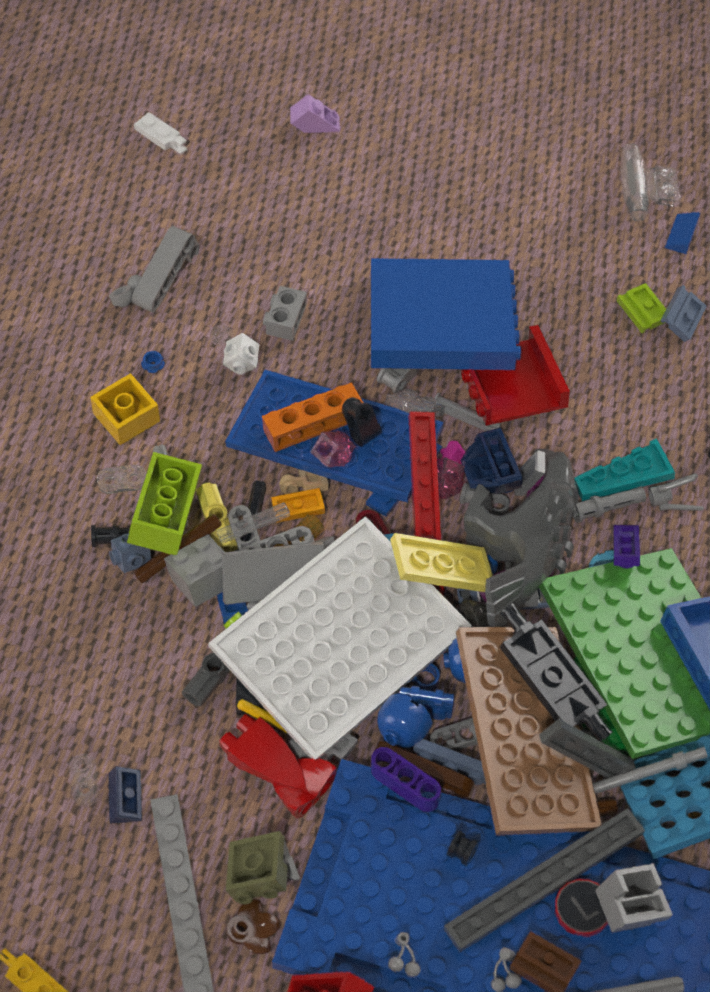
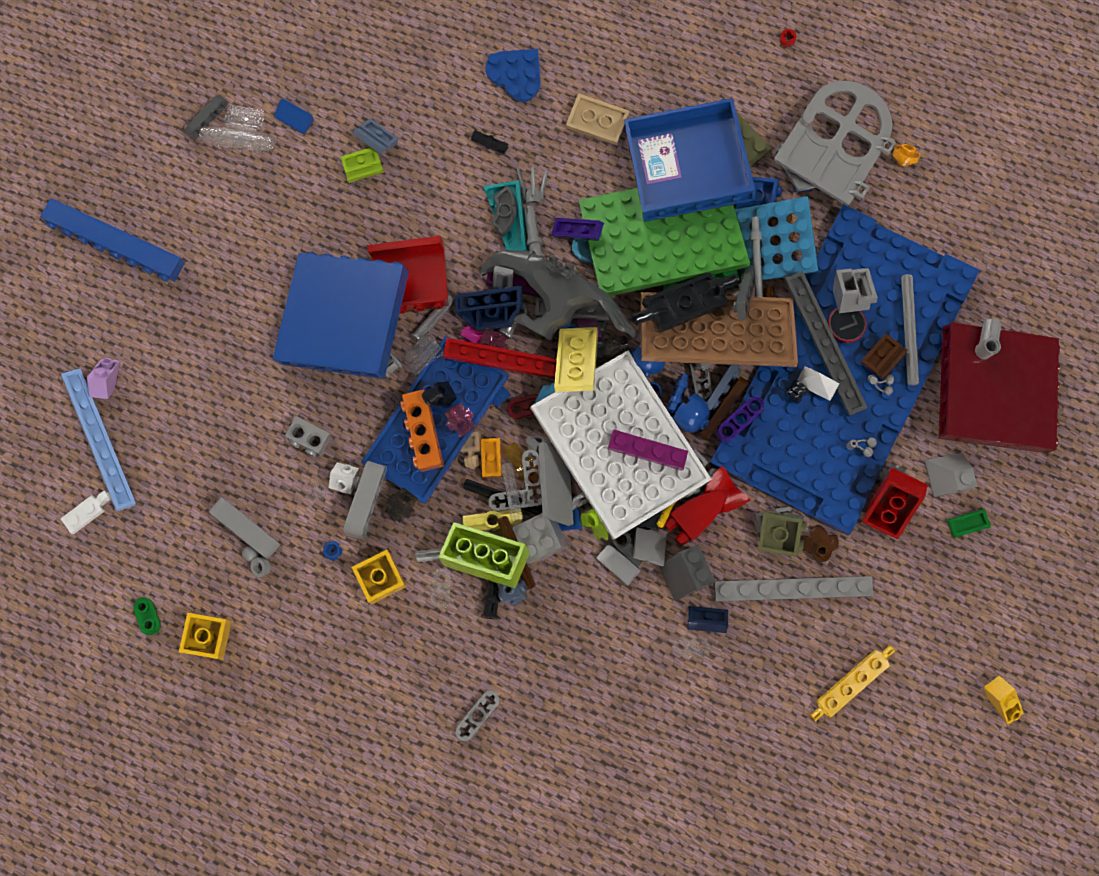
camera: 75 degrees left, 20 degrees up
(32, 257) = (205, 636): none -> yellow brick
(51, 207) = (149, 614): none -> green plate
(181, 672) = (618, 564): none -> light grey slope
(184, 755) = (687, 573): none -> dark grey slope
(211, 702) = (649, 546): none -> light grey piece
(214, 374) = (364, 501): none -> light grey beam
(218, 416) = (398, 507): none -> clear smoke brick
(238, 128) = (98, 440): none -> light blue plate
(337, 667) = (648, 450): none -> magenta plate
(476, 97) = (113, 240): none -> blue brick
(482, 876) = (818, 383): none -> white slope
(628, 464) = (505, 212): none -> dark grey tile
(661, 148) = (208, 113): none -> dark grey beam

